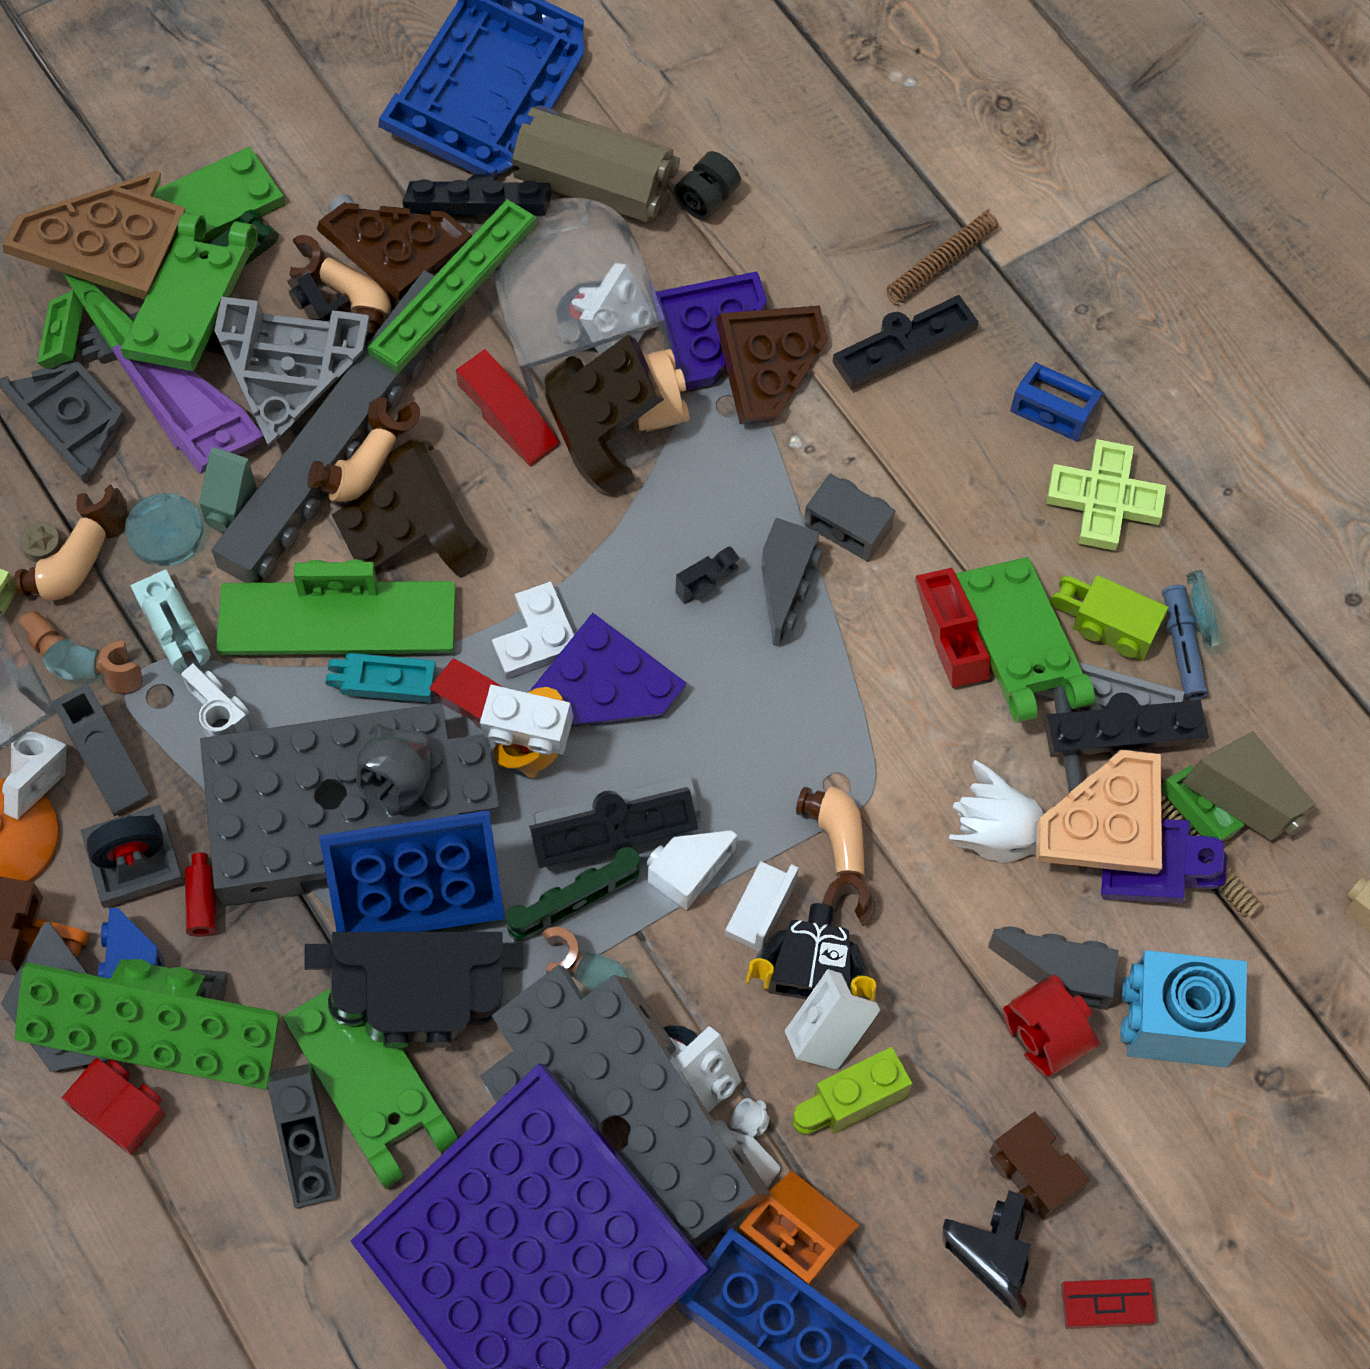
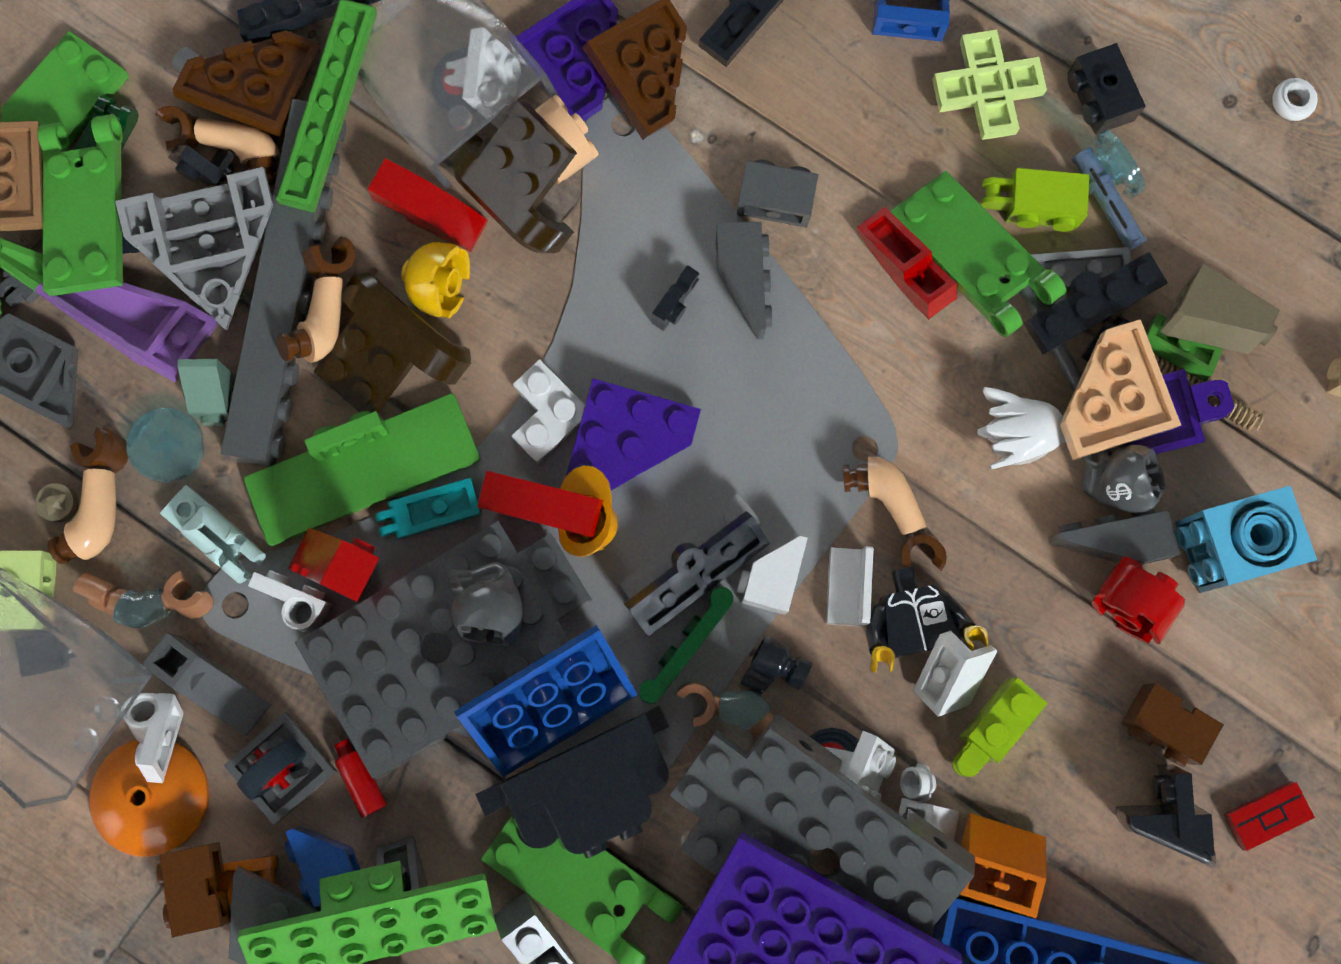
camera: 25 degrees left, 15 degrees up
(276, 685) = (335, 562): none -> red wedge
(486, 471) = (435, 278): none -> yellow cylinder
(526, 720) = (584, 514): white brick -> none
(653, 943) = (773, 661): none -> black piece
(1087, 903) = (1125, 479): none -> dark grey piece
(1222, 538) = (1105, 89): none -> black brick

